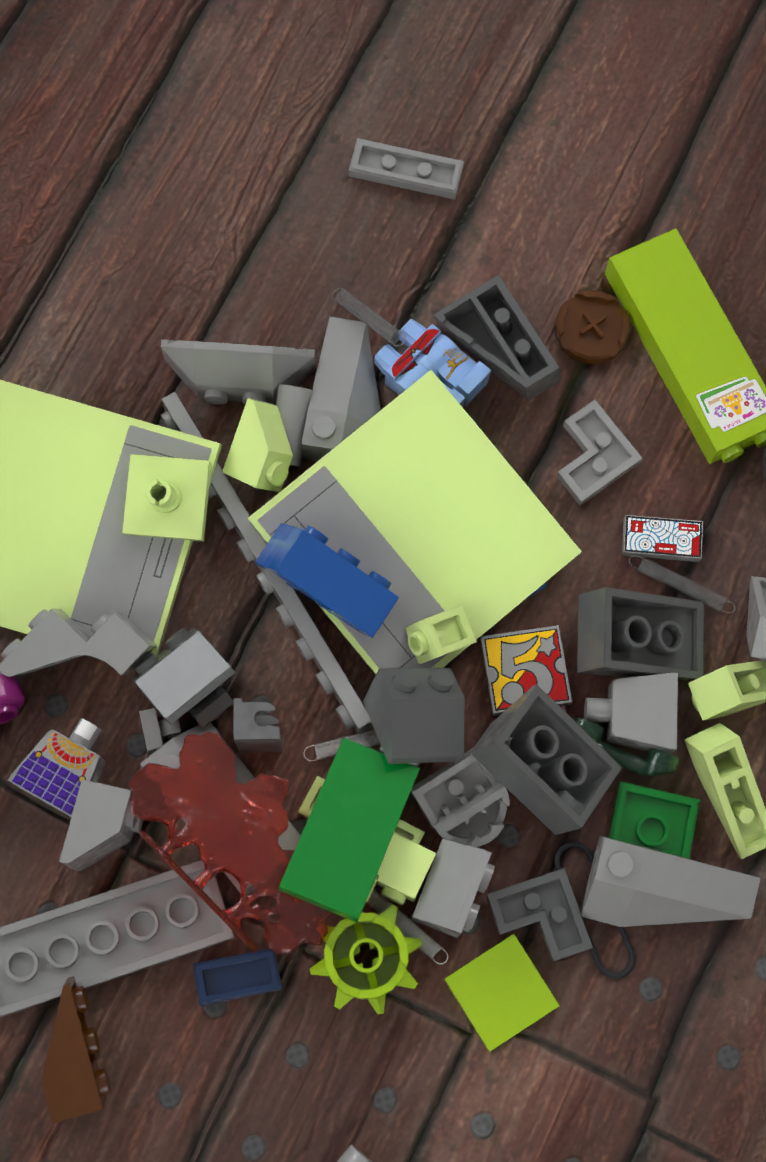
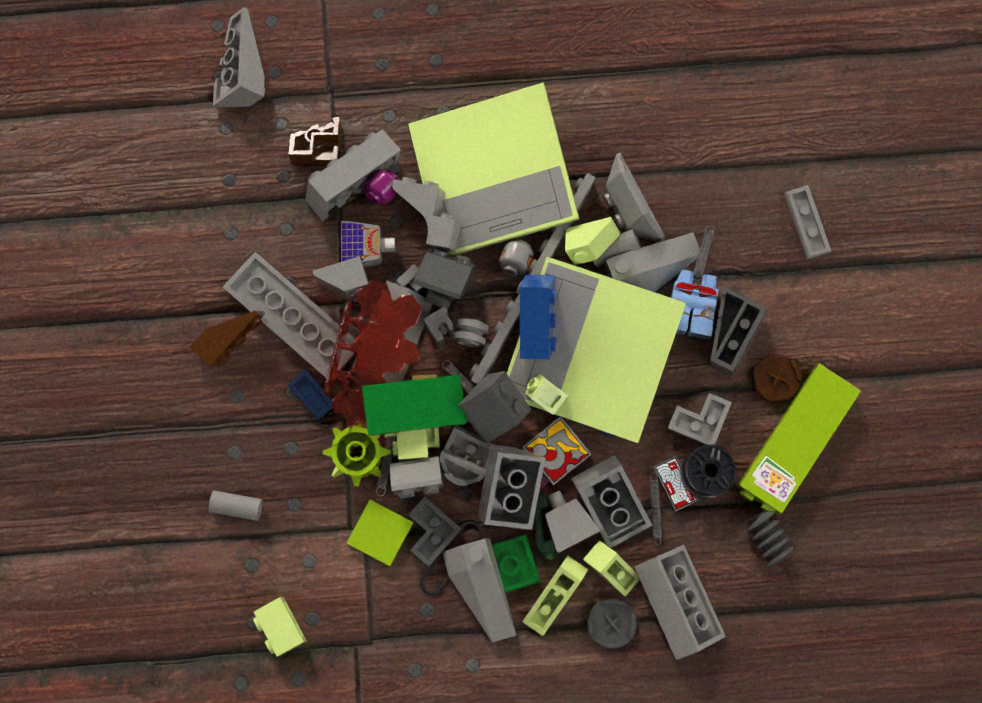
camera: 65 degrees right, 5 degrees up
(167, 497) = (532, 208): yellowish green tile -> none
(219, 565) = (516, 258): none -> light grey head
(288, 690) = (470, 332): none -> light grey wheel
(668, 503) = (698, 482): none -> black wheel

